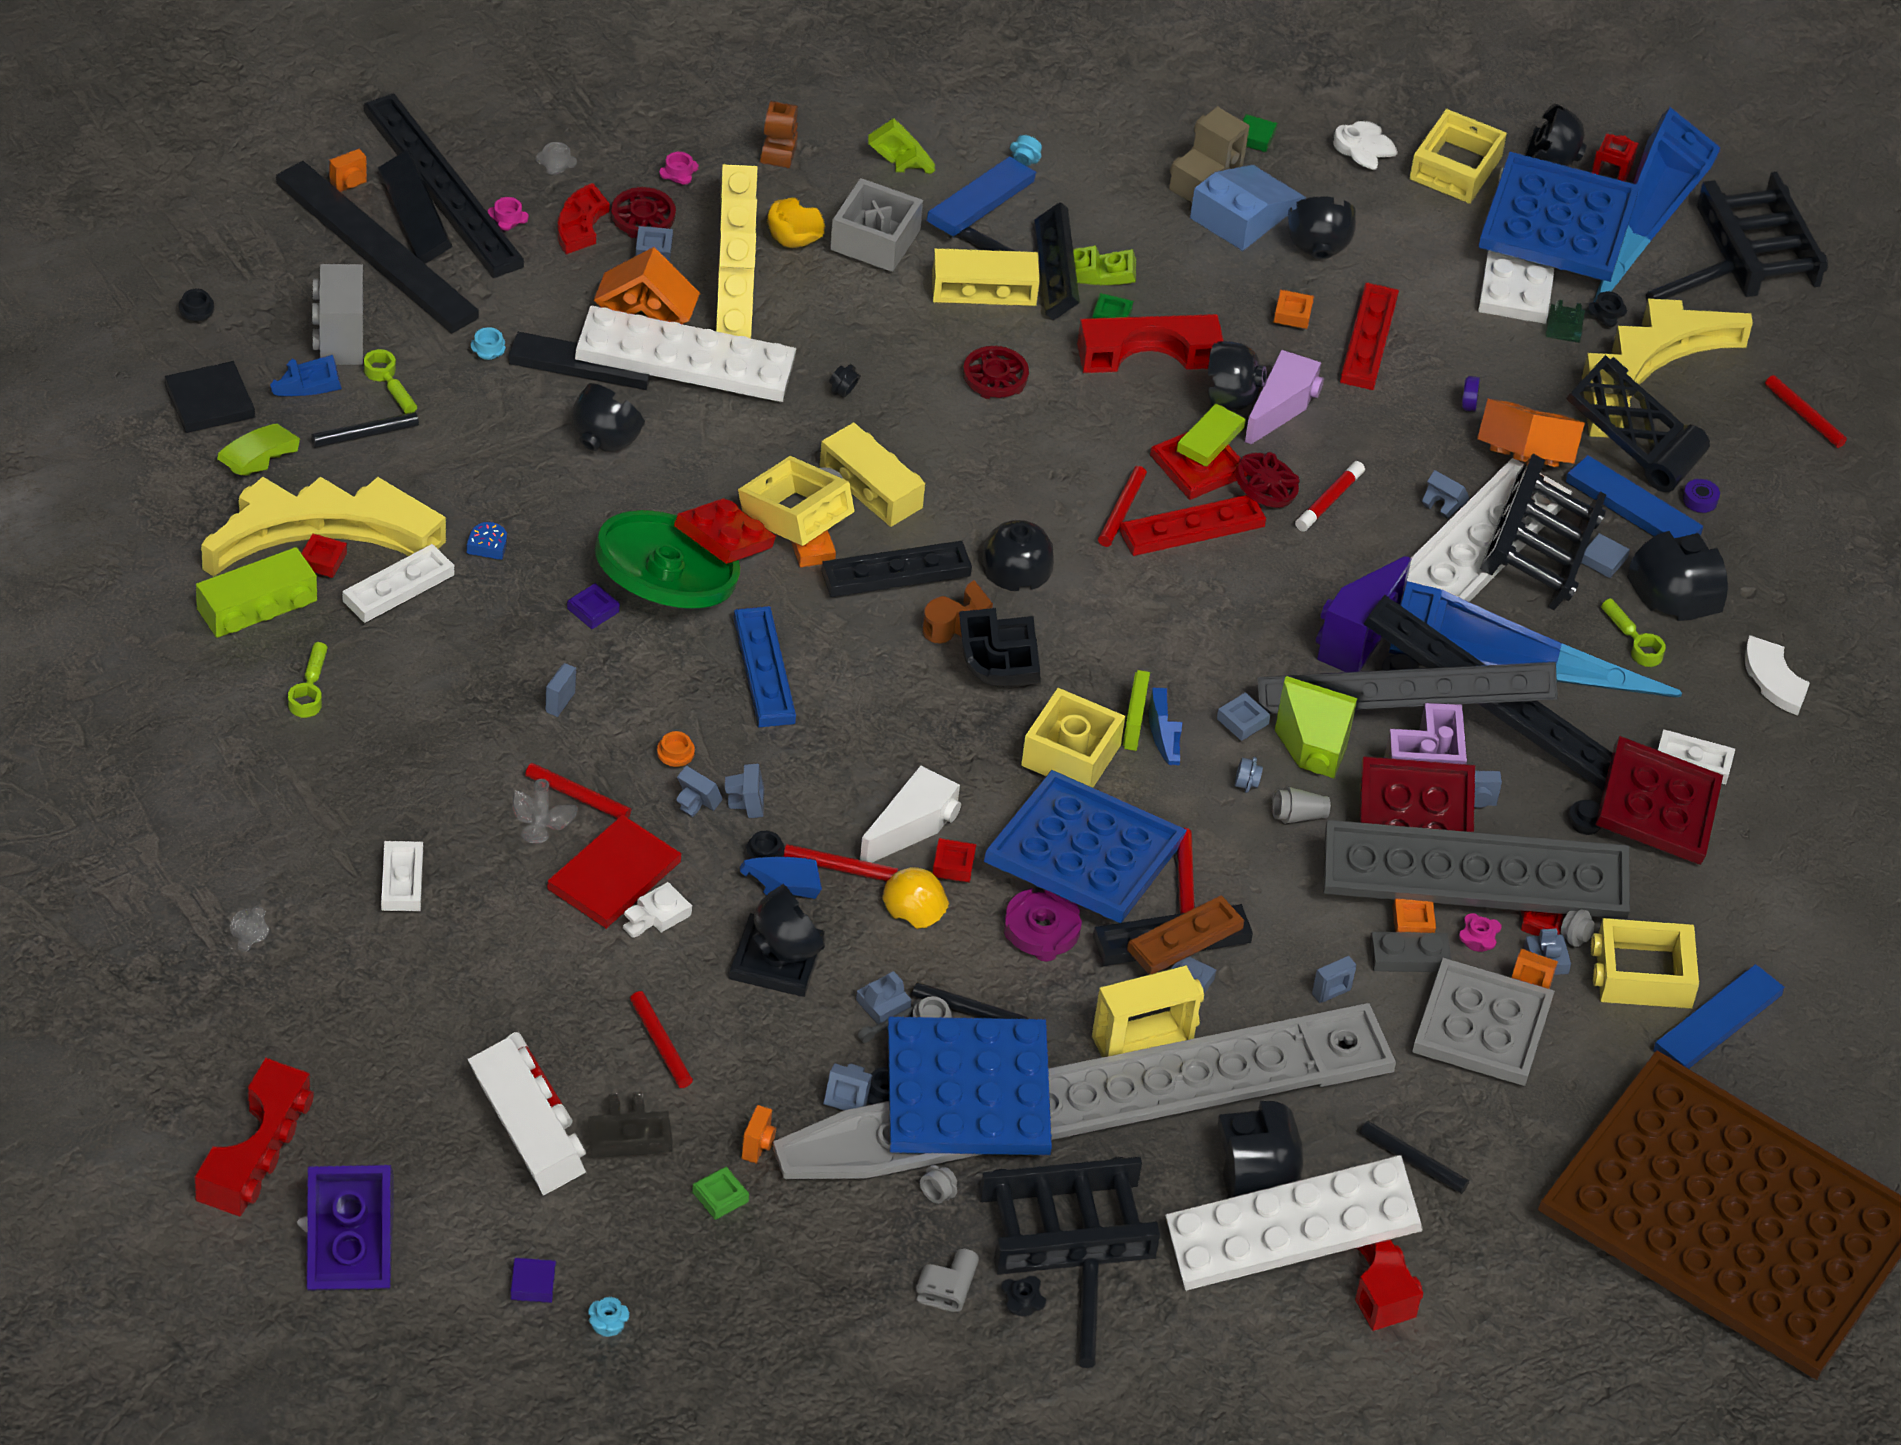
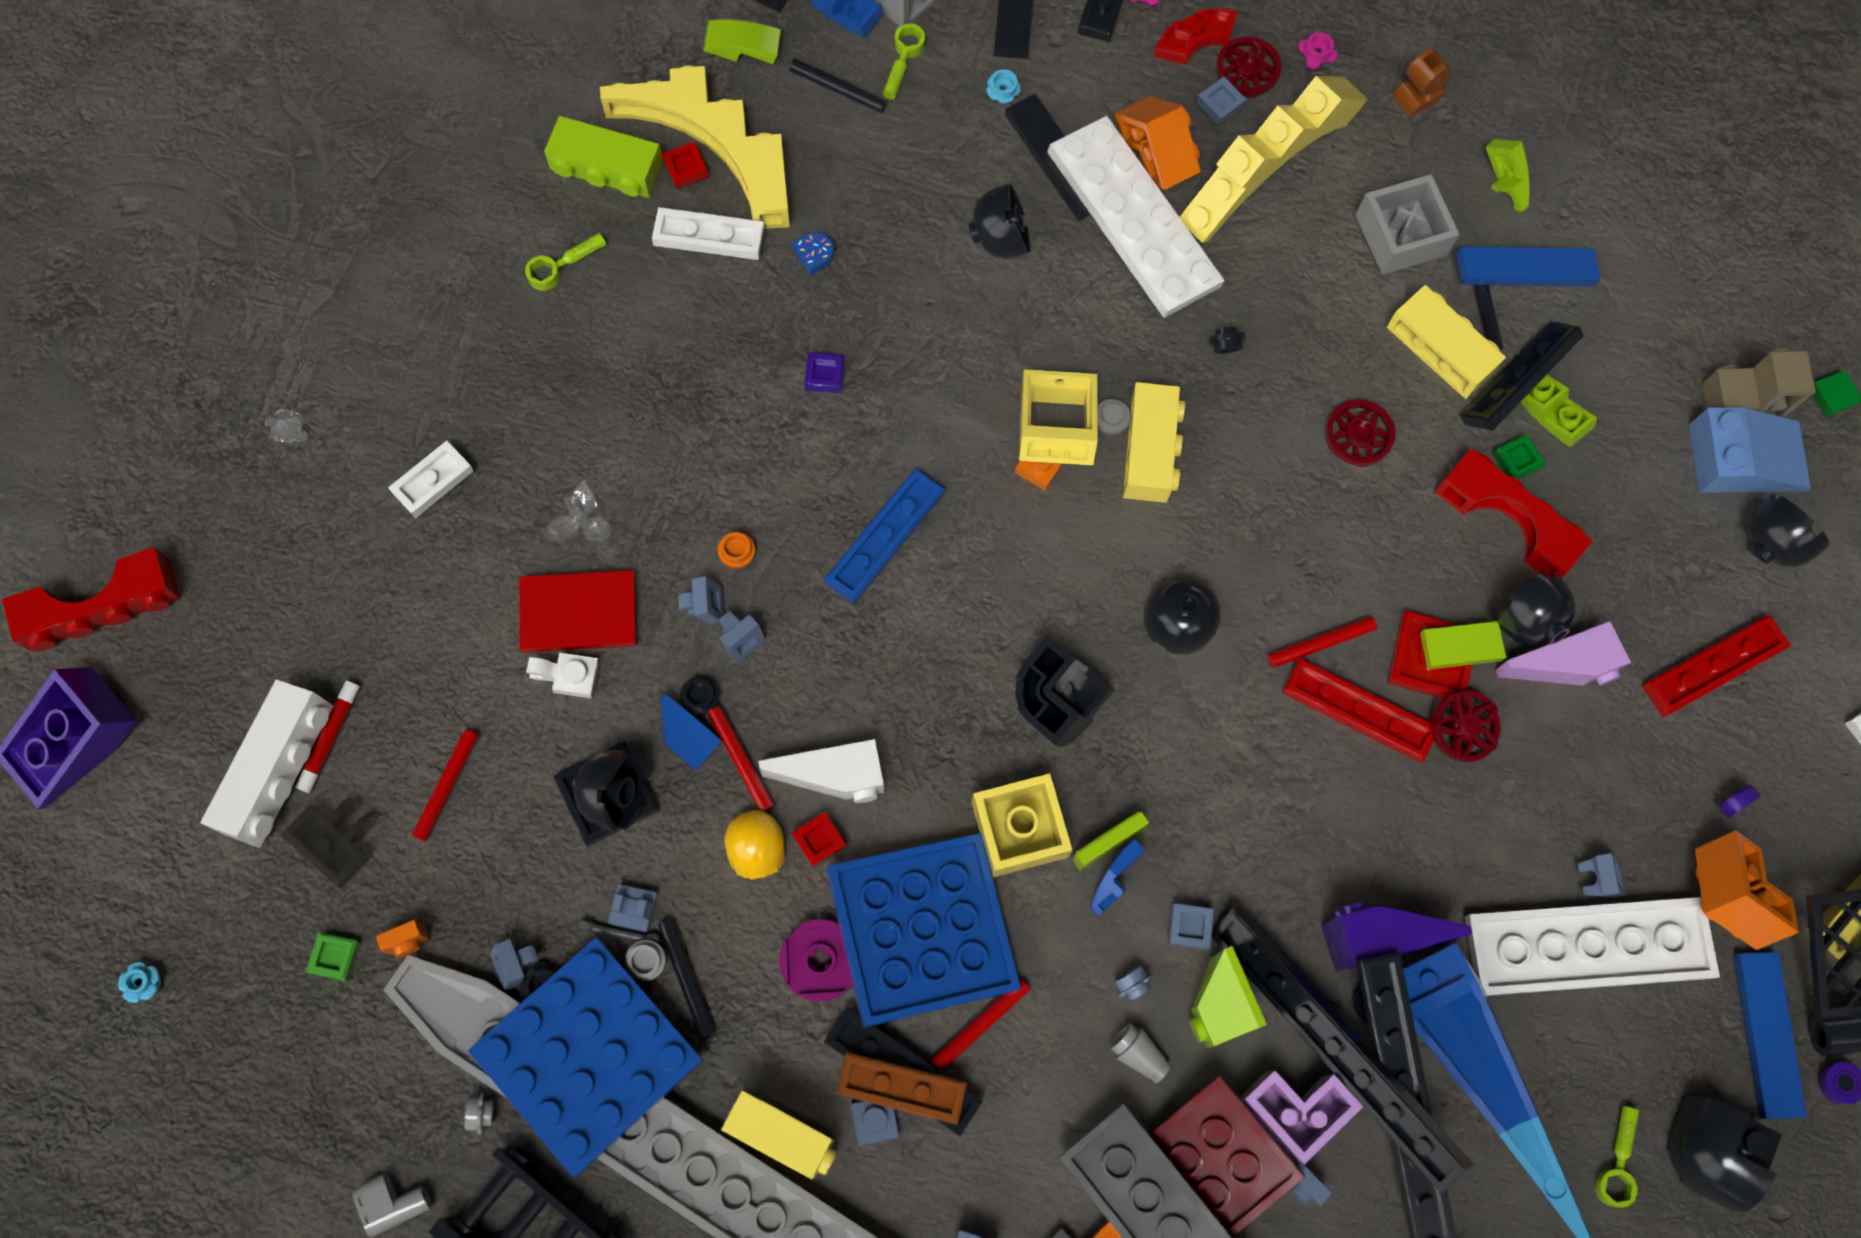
camera: 50 degrees right, 25 degrees up
(533, 1280) = (131, 899): dark purple tile -> none
(560, 689) = (711, 424): sand blue tile -> none
(578, 791) = (632, 521): red bar -> none
(661, 562) = (905, 383): green dish -> none
(725, 530) = (983, 395): red plate -> none
(793, 224) = (1347, 170): yellow hair -> none
(896, 568) = (1075, 541): black plate -> none
(942, 613) = (1057, 618): dark orange leg -> none
(1026, 150) = (1614, 254): medium azure plate -> none
(1293, 309) = (1675, 586): orange plate -> none
(1330, 496) = (1506, 786): red bar -> none
(1511, 528) = (1615, 970): black fence -> none
(1605, 555) = (1683, 1060): sand blue tile -> none

